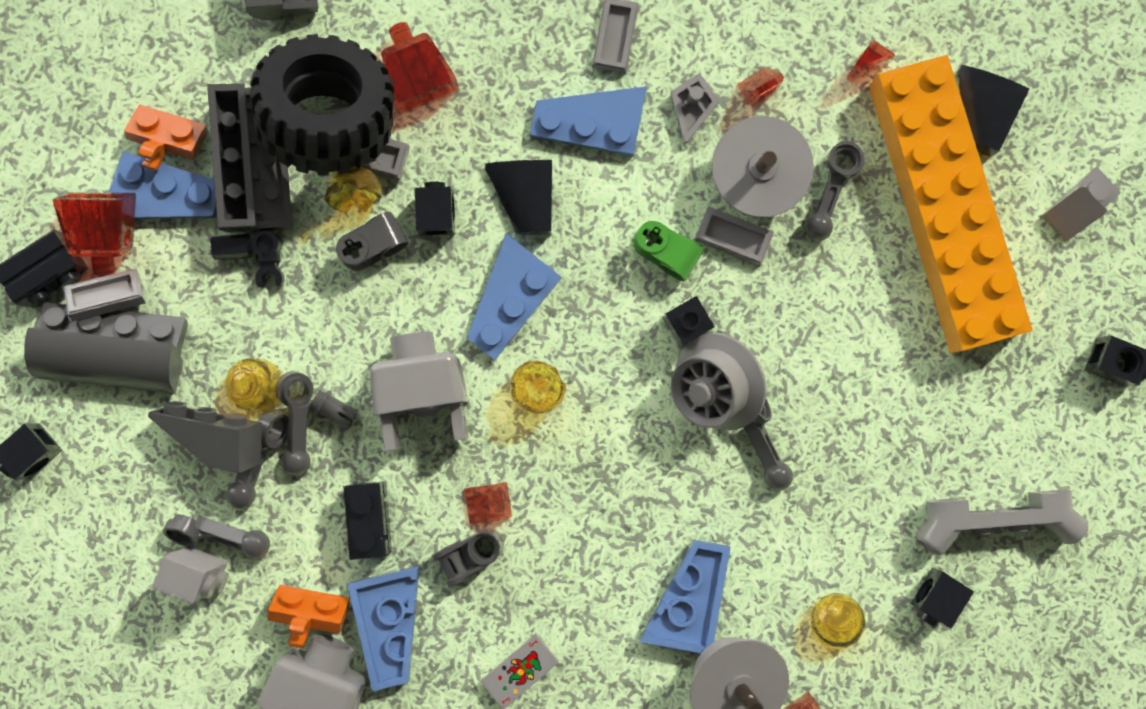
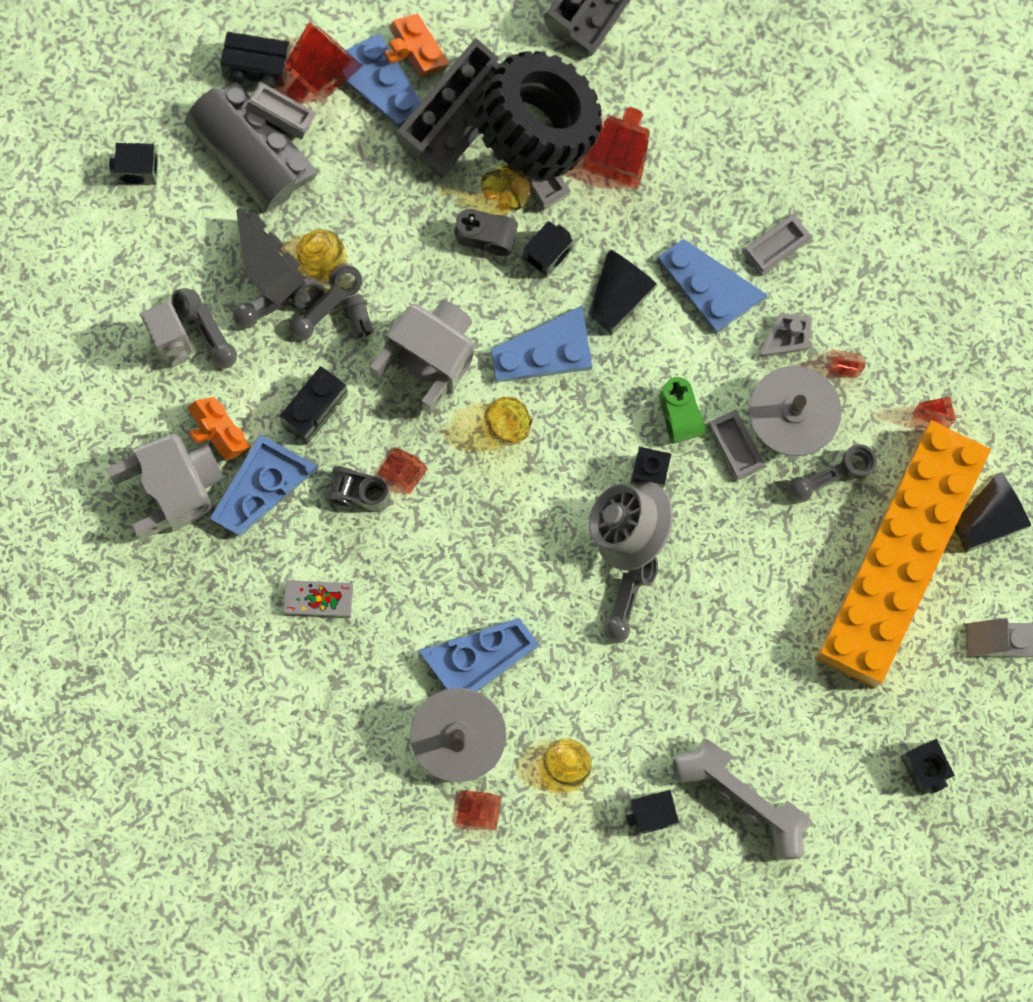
camera: 35 degrees right, 10 degrees down
(265, 245) = (414, 171): black bar -> none

